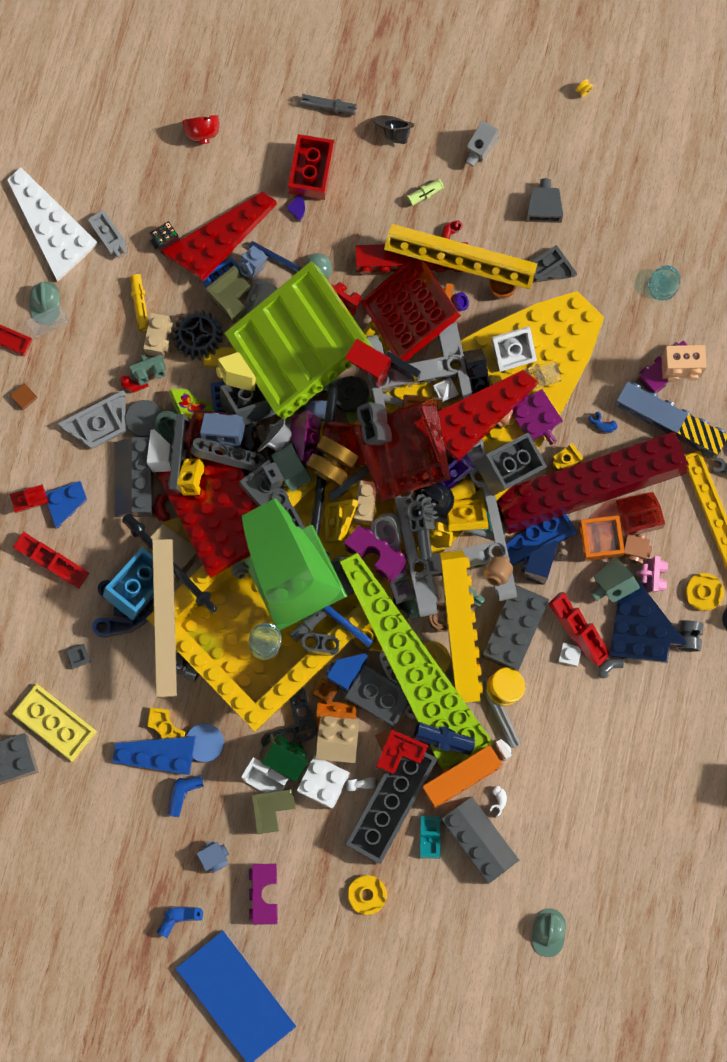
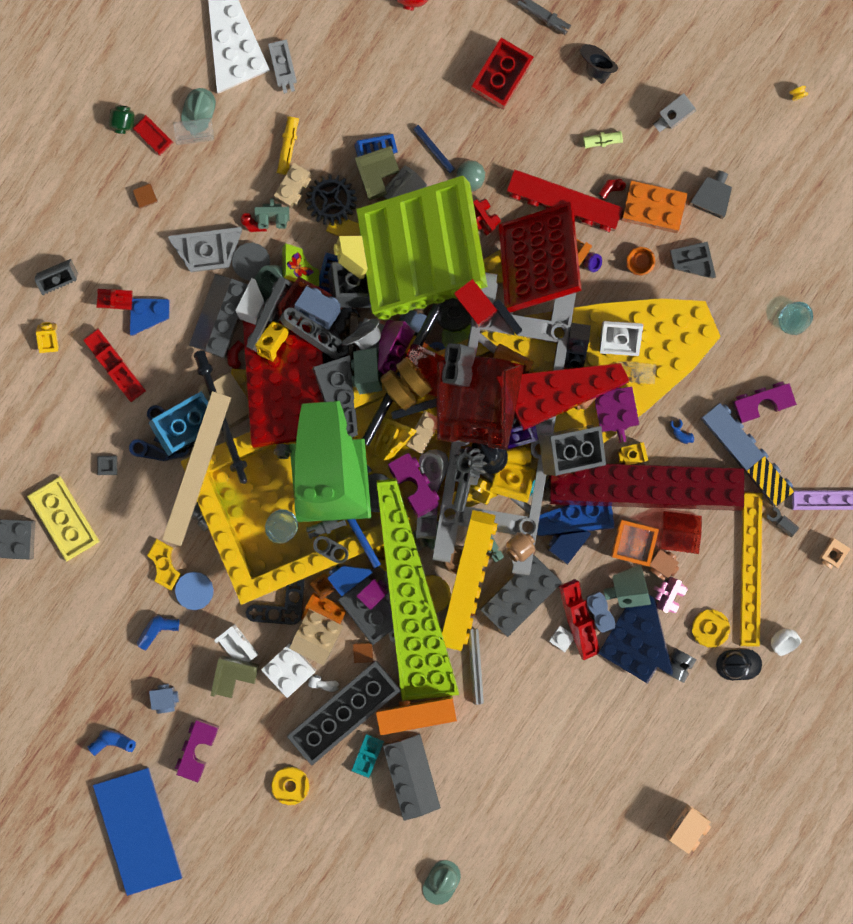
camera: 25 degrees right, 10 degrees up
(163, 237) = (334, 90): brick -> none
(165, 754) = (153, 588): blue wing -> none
(212, 243) = (378, 113): red wing -> none
(252, 262) = (409, 148): sand blue brick -> none
(273, 474) = (348, 372): dark grey piece -> none
(283, 756) = (260, 634): dark green brick -> none
(297, 208) = (474, 108): dark purple tile -> none
(376, 675) = (373, 593): none -> magenta slope
(398, 746) = (368, 666): red panel -> none
(444, 738) = (414, 675): dark blue piece -> none
(446, 390) = (541, 352): white tile -> none
(460, 256) = (609, 221): yellow brick -> none
(497, 230) = (654, 207): none -> orange brick
(501, 798) = (446, 746): white arm -> none
(503, 749) = (466, 703): white tile -> none
(505, 686) = (490, 646): yellow head -> none
(593, 612) = (598, 607): none -> sand blue brick
(607, 666) = (593, 662): dark grey arm -> none
(683, 362) = (779, 408): light nougat piece -> none

